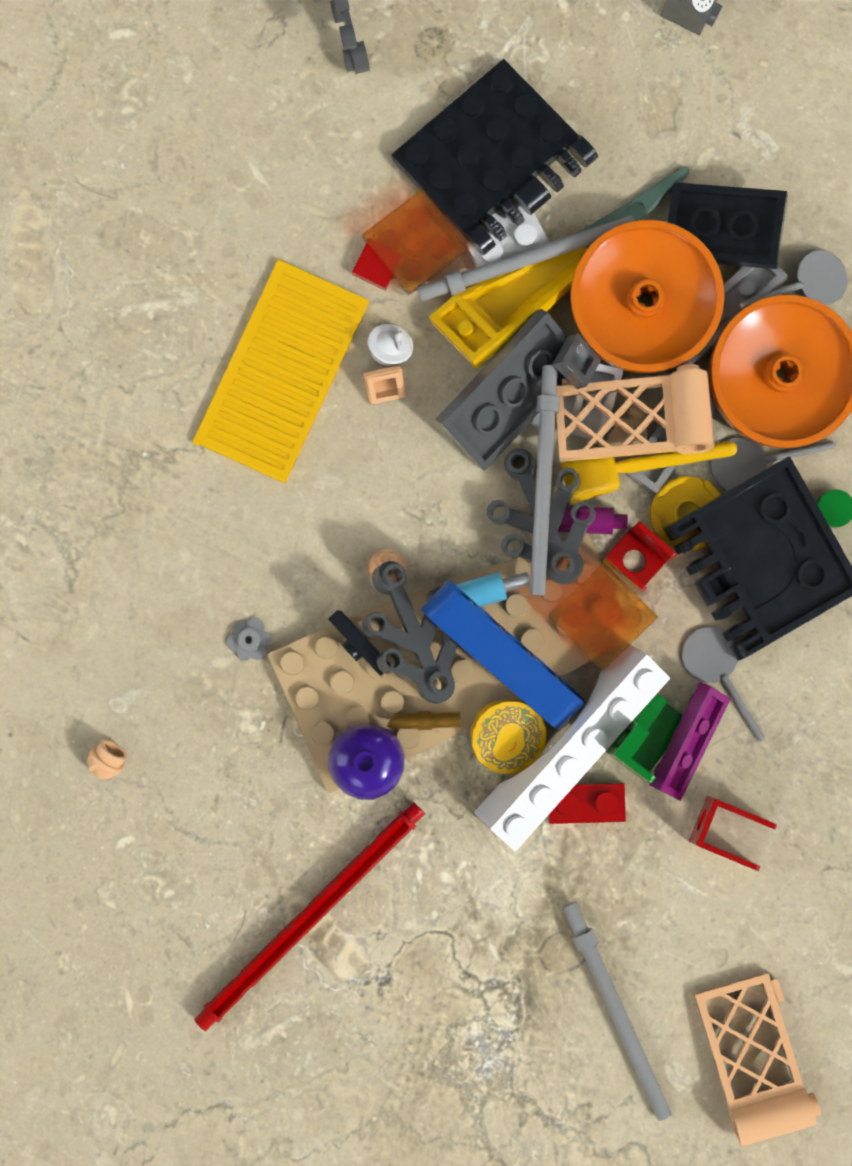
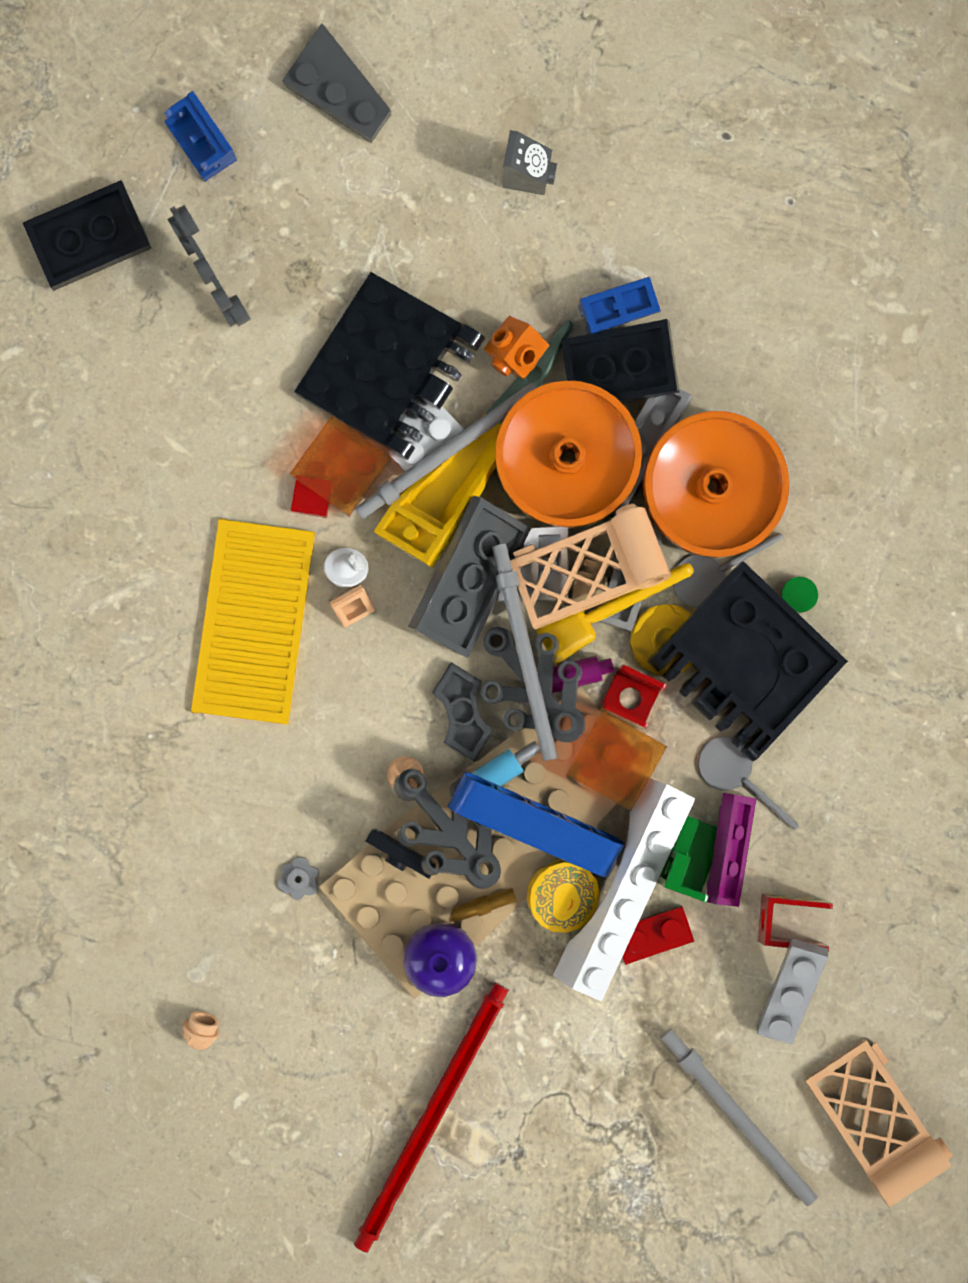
camera: 15 degrees left, 0 degrees up
(462, 542) = (458, 693): none -> dark grey tile
(577, 361) = (522, 533): flat silver plate -> none
(625, 176) = (515, 348): none -> orange brick
(709, 900) = (792, 991): none -> light grey plate
(742, 164) = (619, 305): none -> blue hinge
(818, 277) = (720, 386): light grey piece -> none

